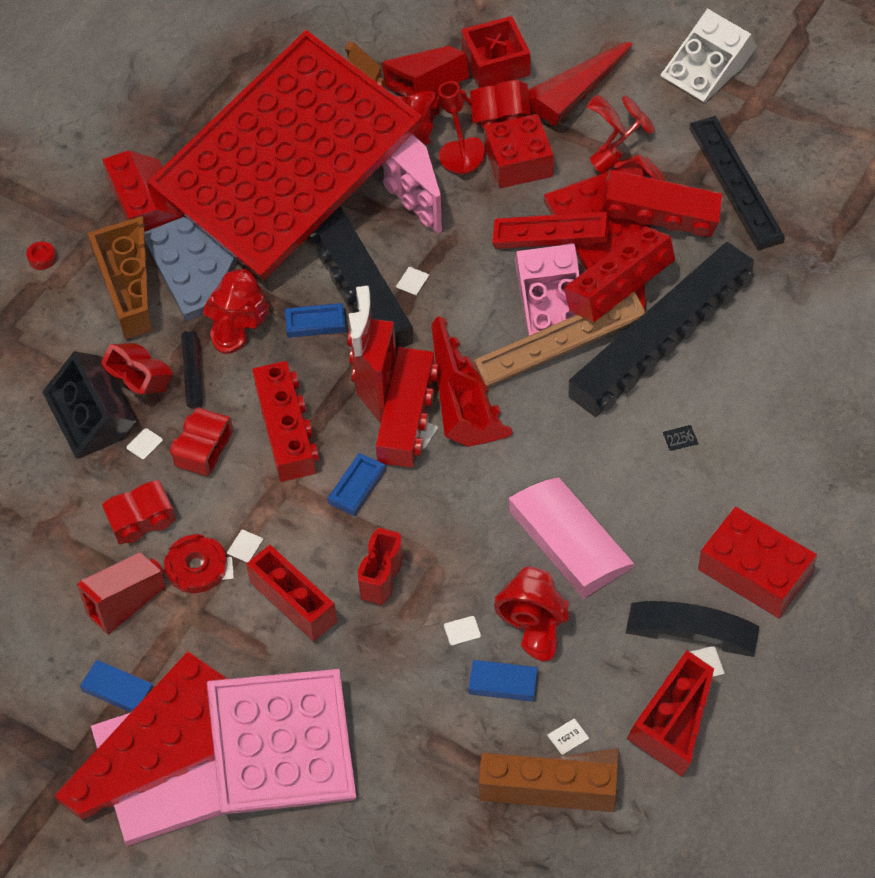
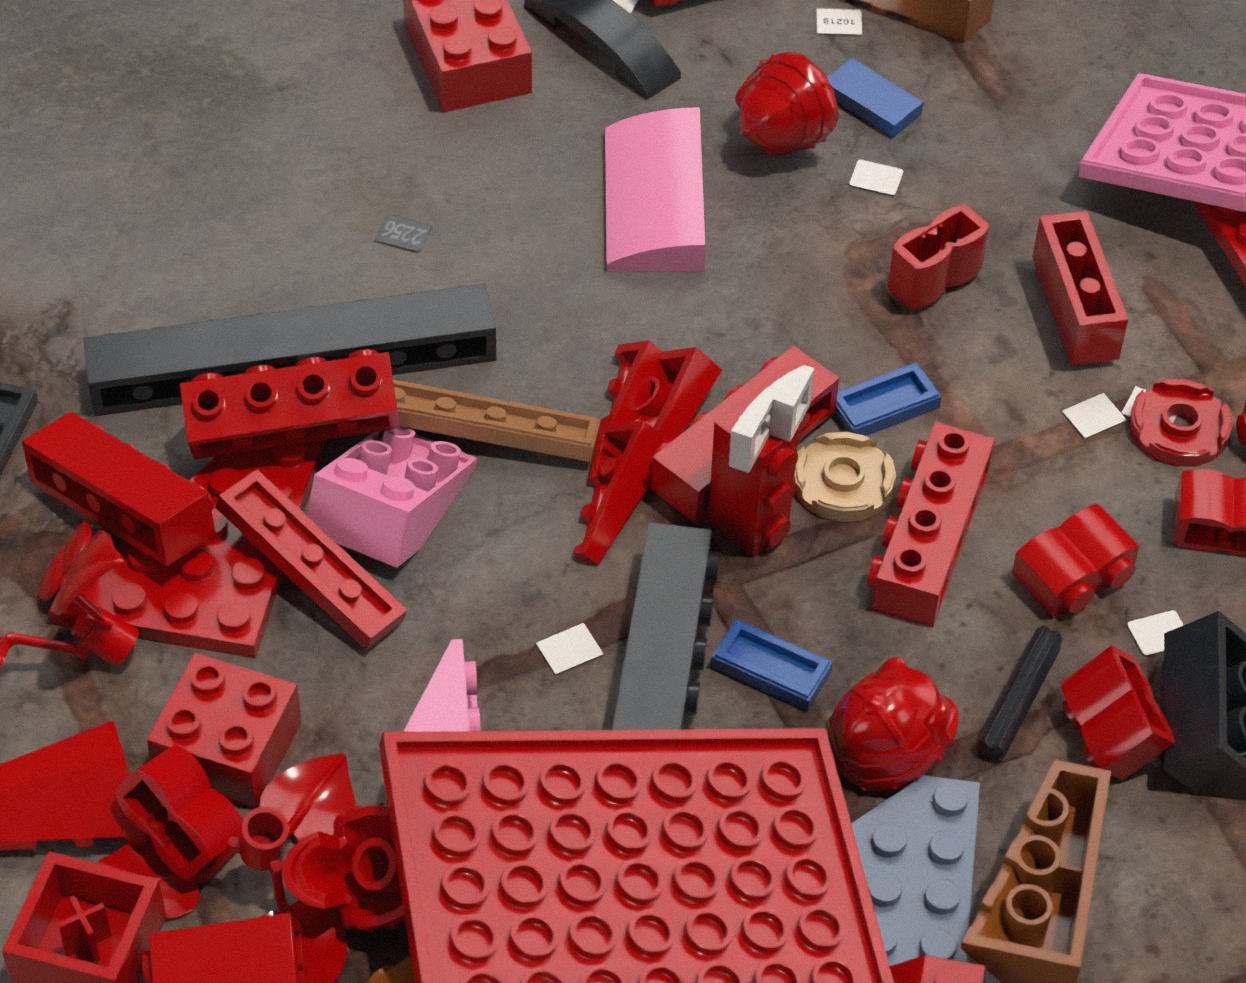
camera: 150 degrees left, 5 degrees down
(348, 431) = (841, 490): none -> tan tile

